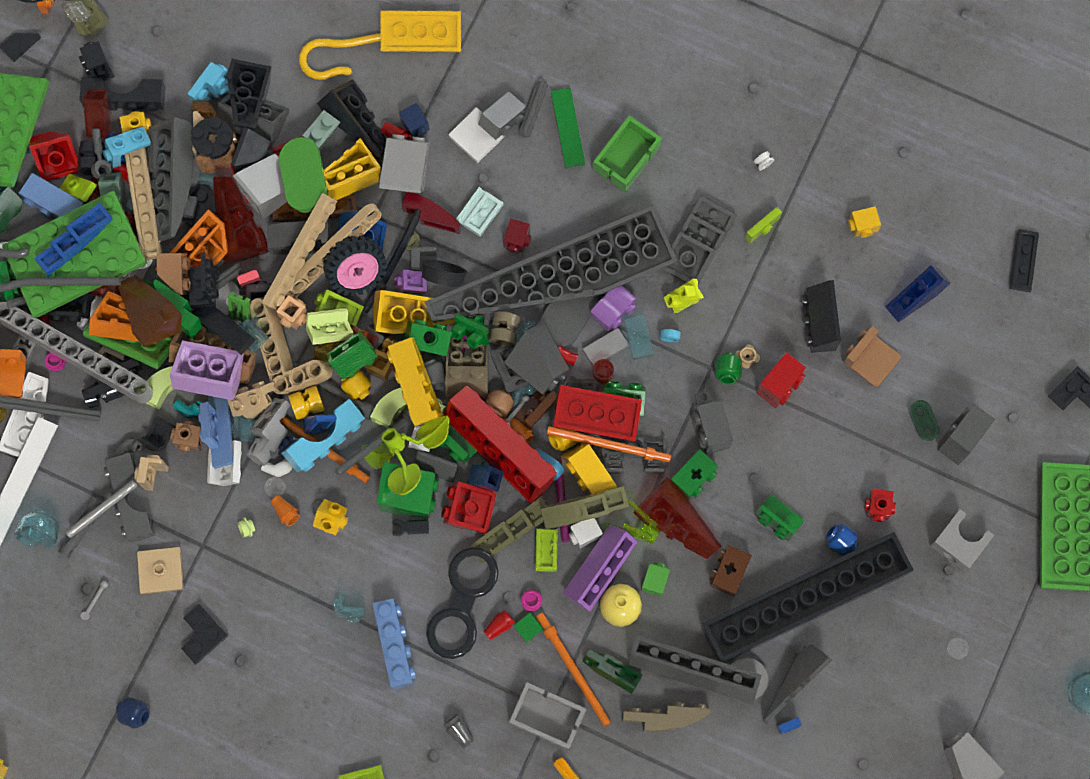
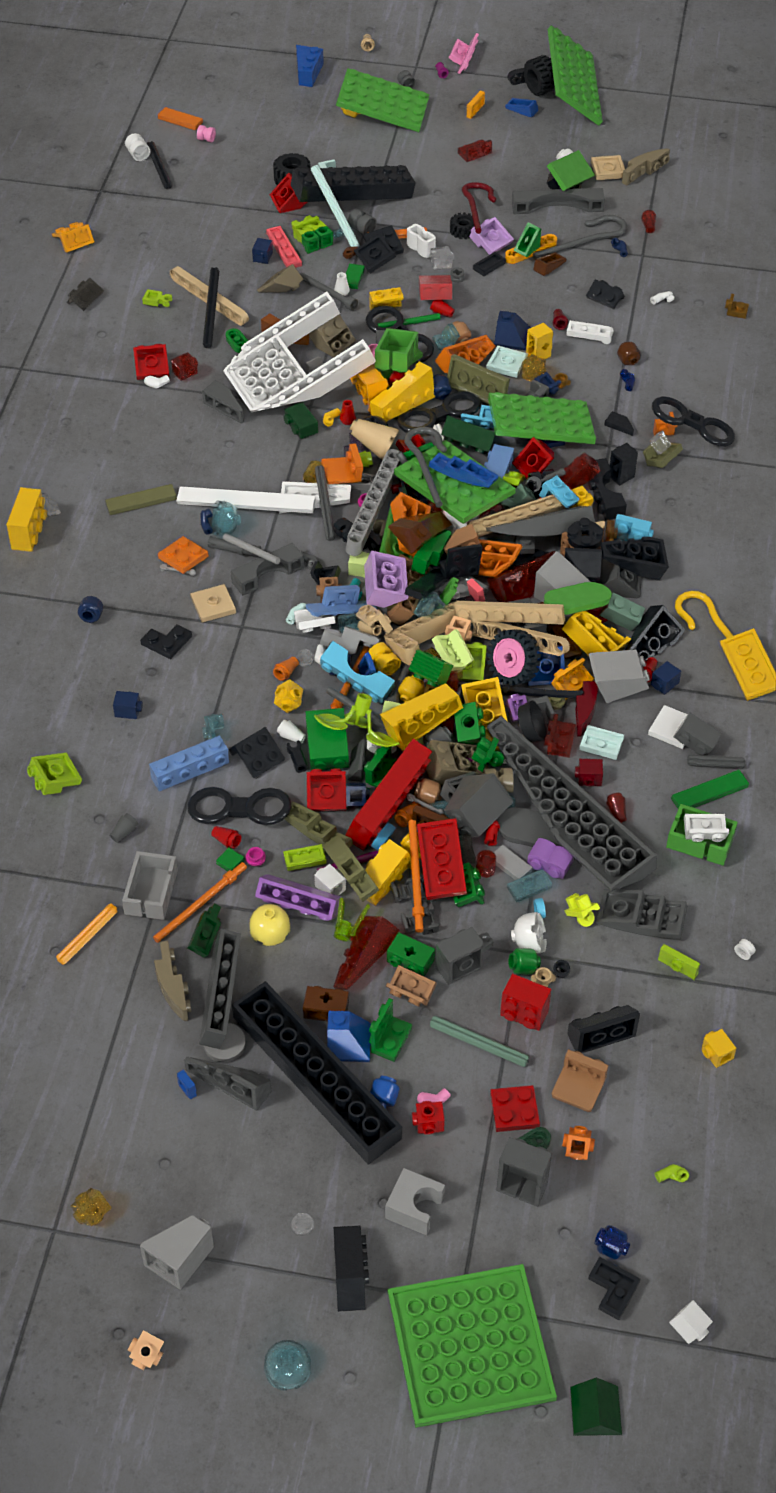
camera: 75 degrees right, 25 degrees down
(33, 553) = (205, 514): none -> dark blue arm
(75, 589) = (183, 554): none -> orange plate
(147, 469) = (290, 570): tan bracket -> none
(200, 475) = (291, 618): none -> light aqua arm
(246, 527) = (264, 647): yellowish green plate -> none
(289, 695) = (127, 705): none -> dark blue brick
(375, 527) = (290, 731): none -> white cone
(393, 219) = (571, 677): none -> light orange bracket
(393, 568) = (258, 752): none -> black bracket
(460, 250) = (560, 737): none -> clear red bracket
(565, 223) = (617, 806): none -> clear red cone
(634, 147) = (705, 827): none -> white bracket
(656, 579) = (300, 945): bright green brick -> none
(700, 354) = (529, 932): none -> white cylinder
(730, 484) = (411, 985): none -> medium nougat bracket
(746, 340) = (564, 966): none -> black hinge
(772, 559) = (348, 1036): none -> blue slope
(803, 435) = (479, 1041): none -> sand green axle
(857, 497) = (442, 1096): none -> bright pink arm
(881, 424) = (514, 1108): none -> red plate
(918, 293) = (666, 1112): clear blue slope -> none
(937, 378) = (575, 1149): none -> orange brick
(978, 304) = (673, 1172): none -> lime arm
(1013, 614) = (350, 1267): none -> black wedge
(1024, 260) = (739, 1209): black tile -> none
(1037, 379) = (612, 1242): none -> clear blue head

